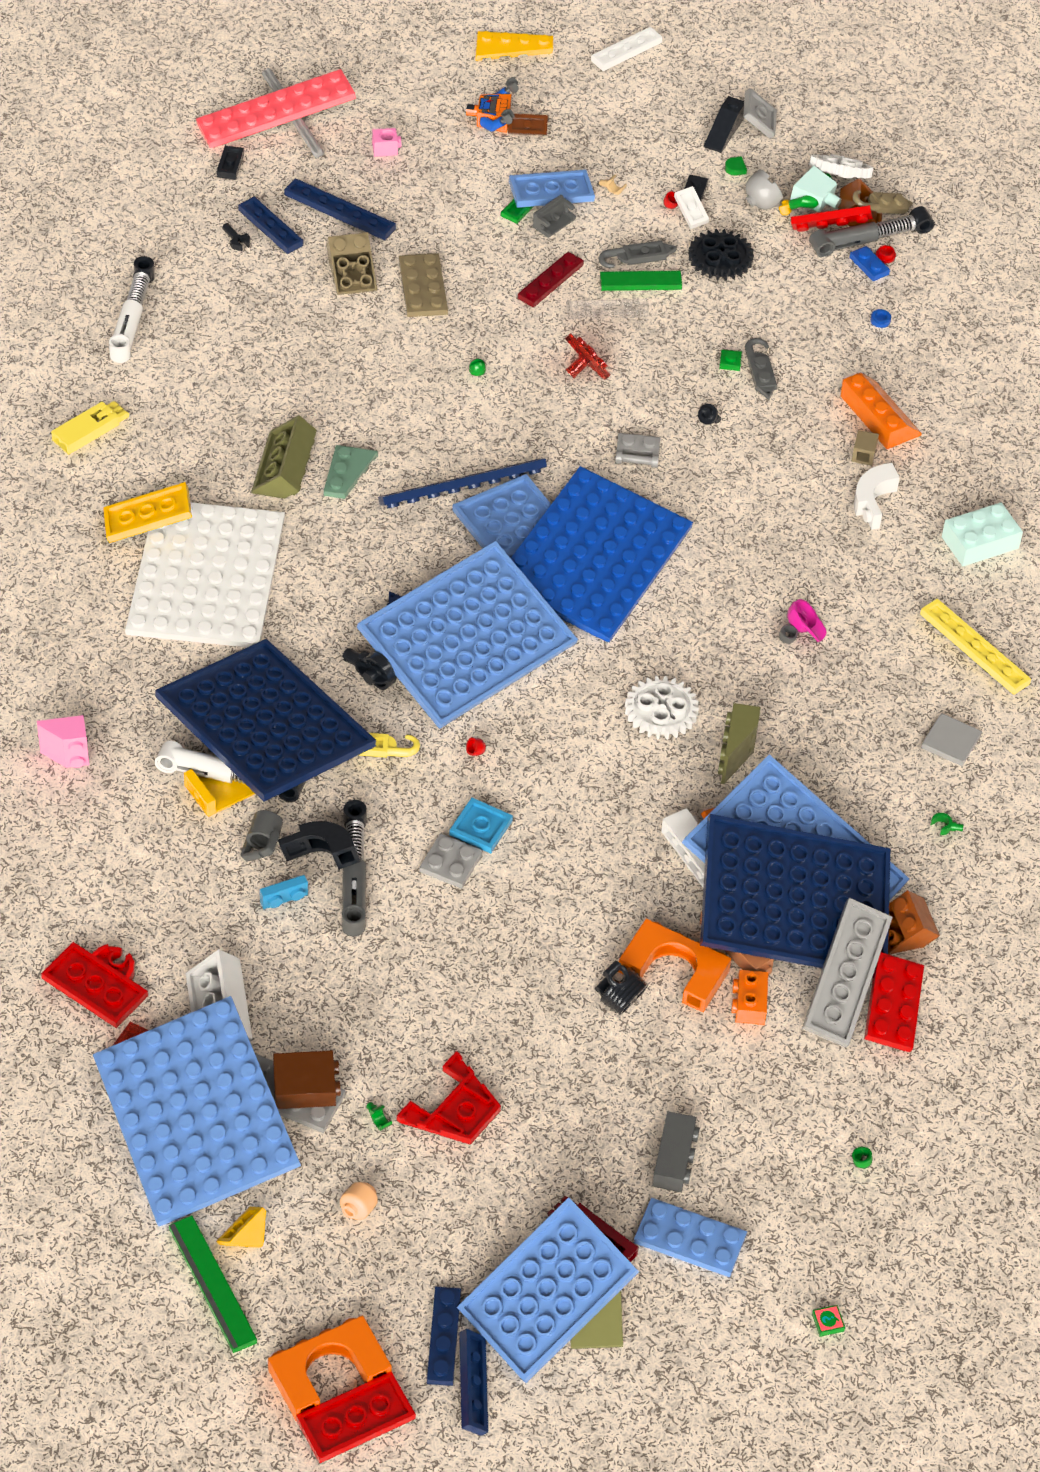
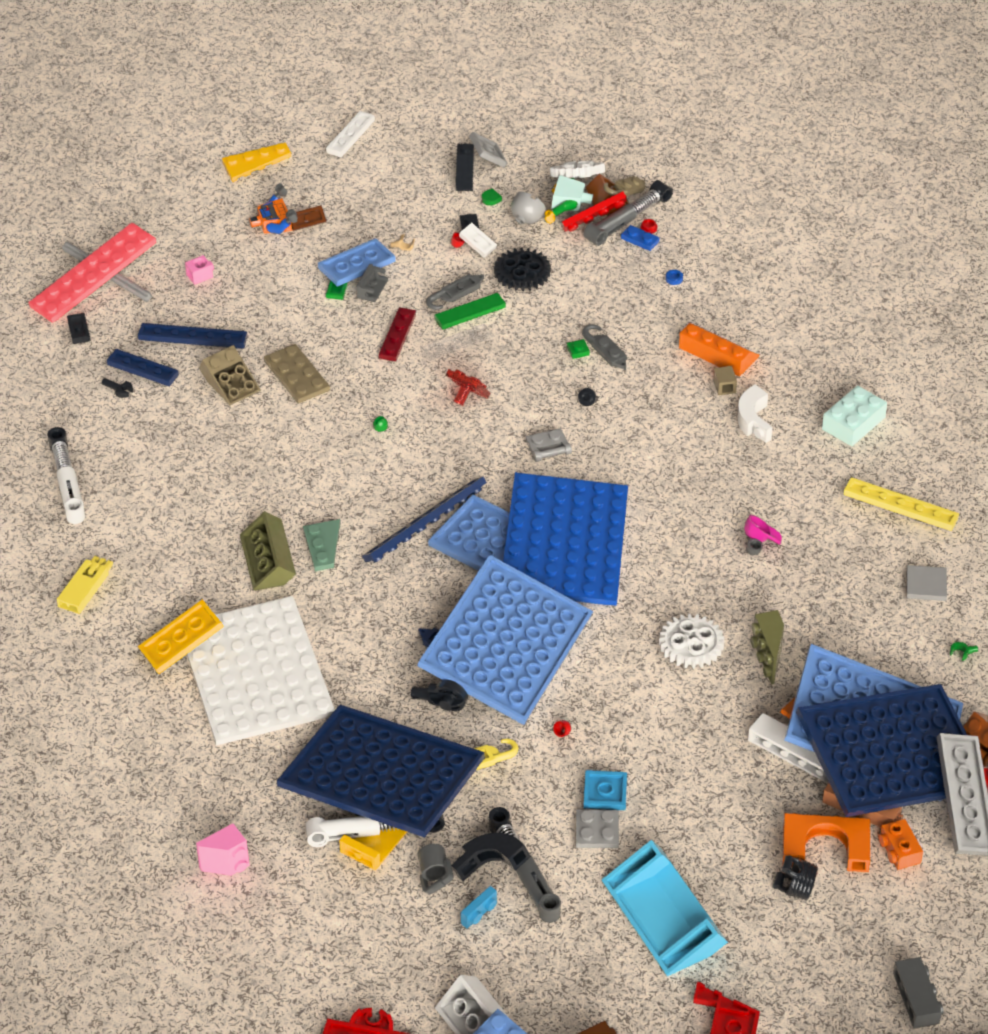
camera: 20 degrees left, 5 degrees down
(467, 967) = (663, 909): none -> medium azure slope

